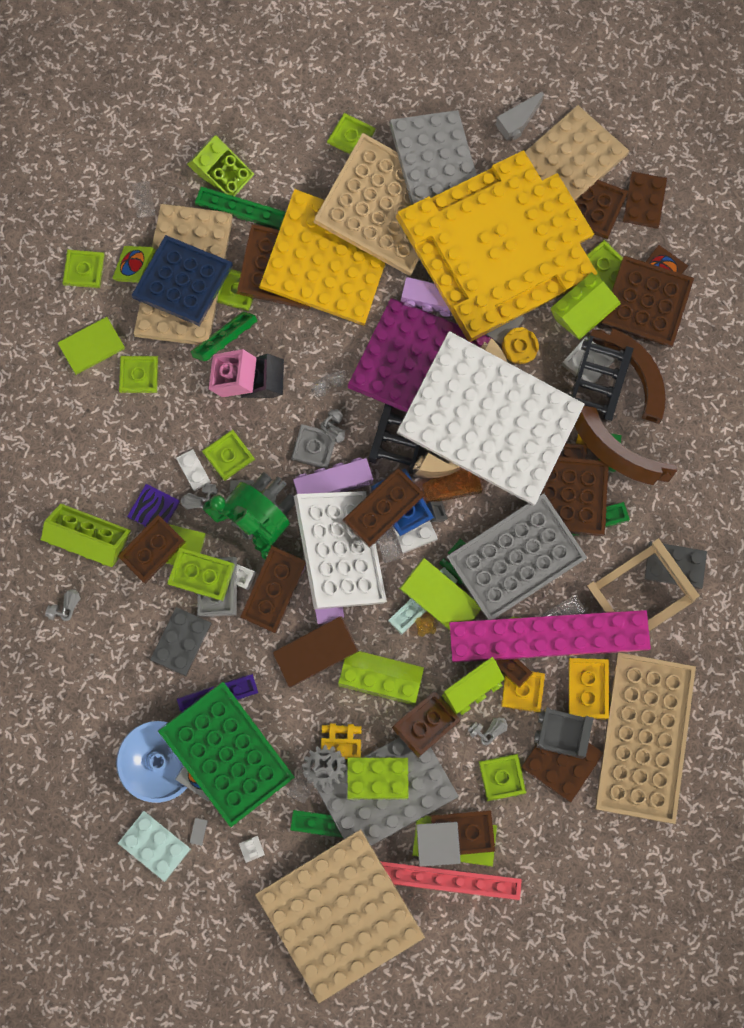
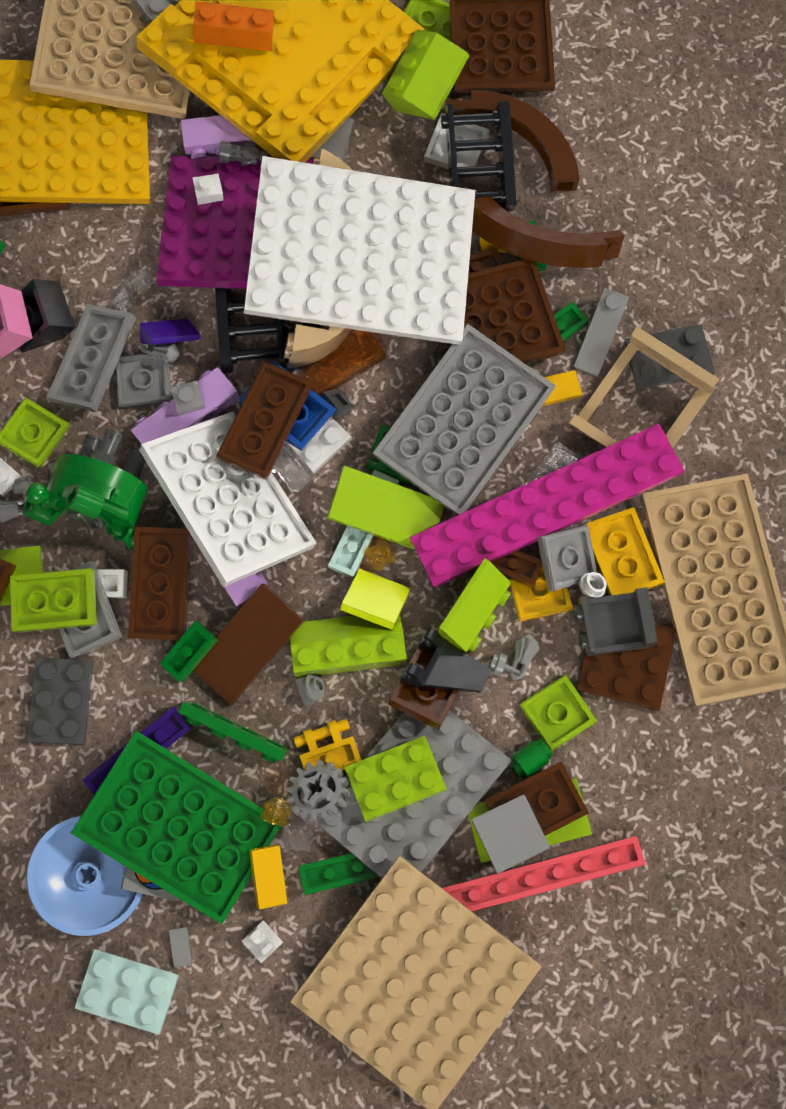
camera: 20 degrees left, 0 degrees up
(271, 809) = (268, 876): none -> yellow tile
(275, 642) = (189, 651): none -> green plate
(279, 700) = (224, 727): none -> green plate
(285, 419) = (91, 357): none -> light grey plate
(292, 769) = (276, 812): none -> clear yellow plate
(338, 472) = (187, 398): none -> light grey plate
(343, 421) = (168, 332): none -> dark purple slope
(345, 697) = (310, 689): none -> light grey plate
(406, 333) = (208, 189): none -> white plate
(411, 654) = (375, 599): none -> neon yellow tile
(440, 719) = (447, 667): none -> black flag
(441, 317) = (247, 154): none -> dark grey piece
(465, 229) = (233, 26): none -> orange brick
(471, 800) = (530, 758): none -> green brick
(520, 346) = (363, 152): yellow tile -> none
(549, 676) = (566, 556): none -> light grey tile
(562, 699) = (592, 585): none -> white plate
(595, 558) = (566, 387): none -> yellow tile
(635, 530) = (601, 332): none -> light grey slope

